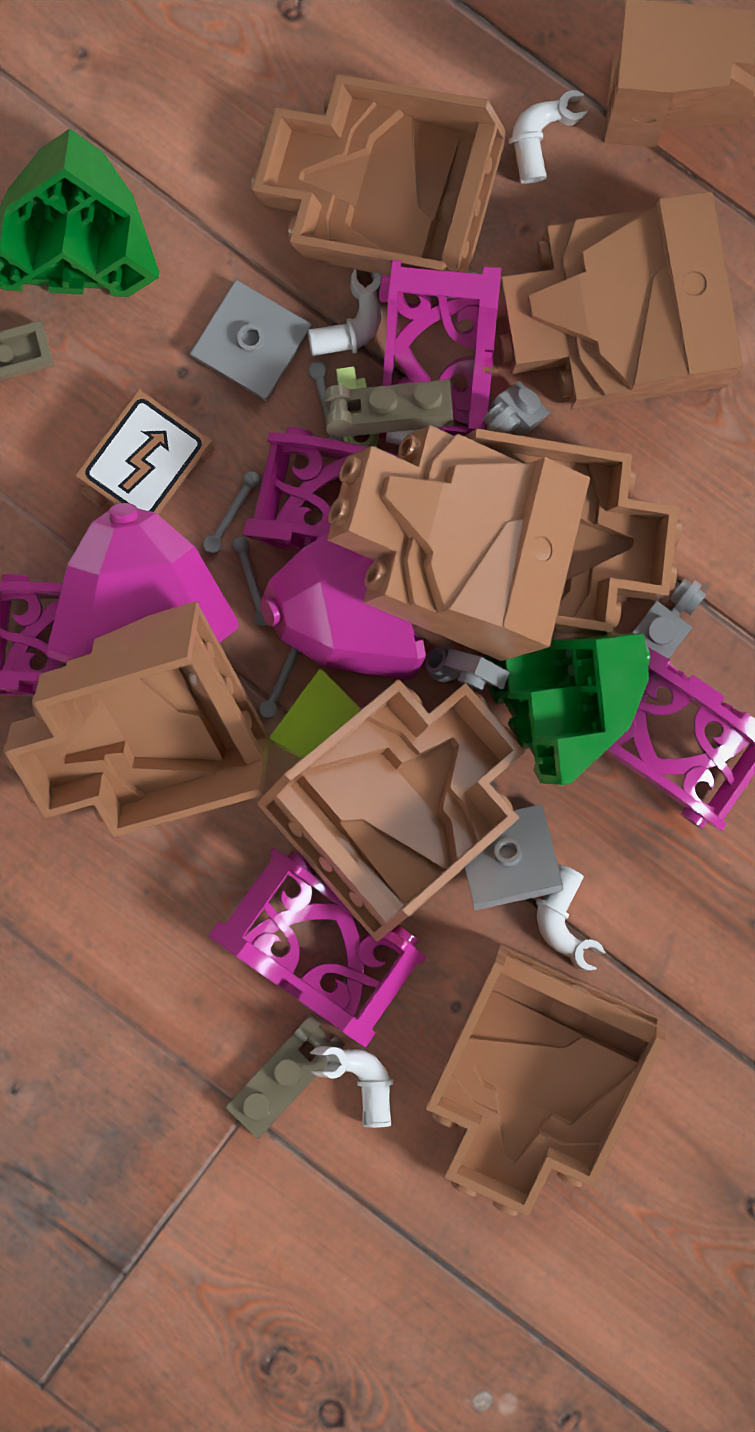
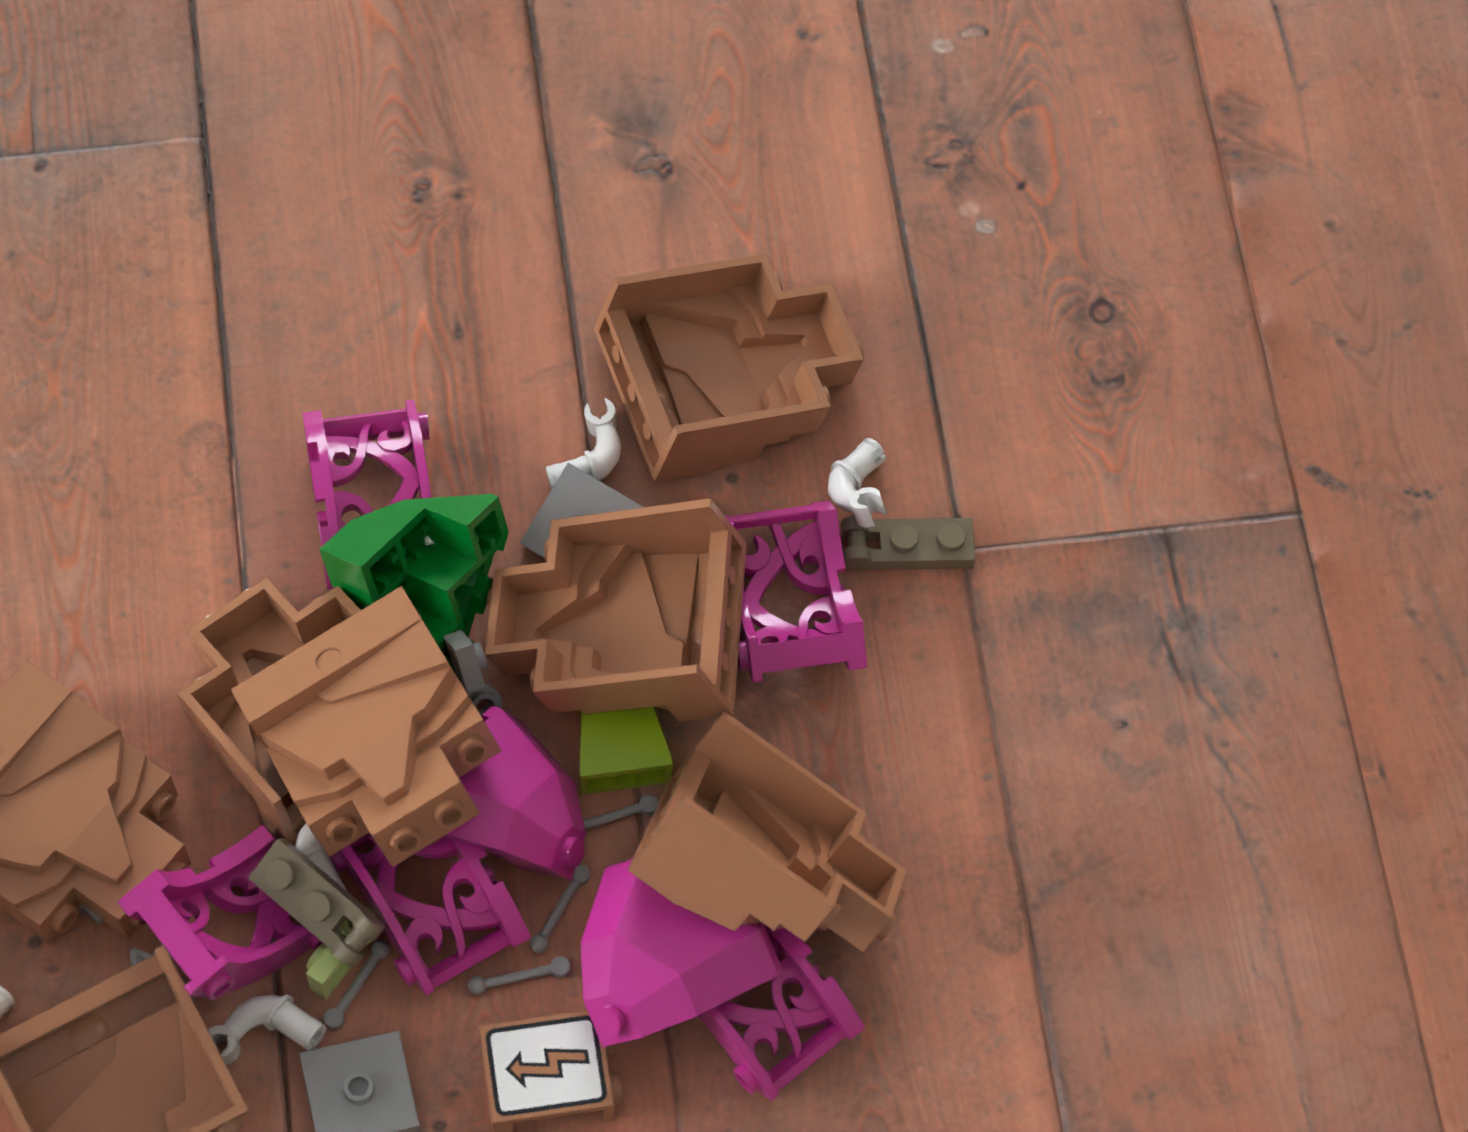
camera: 140 degrees left, 20 degrees down
(515, 410) = (221, 821): light grey plate -> none
(663, 627) = (295, 576): light grey plate -> none

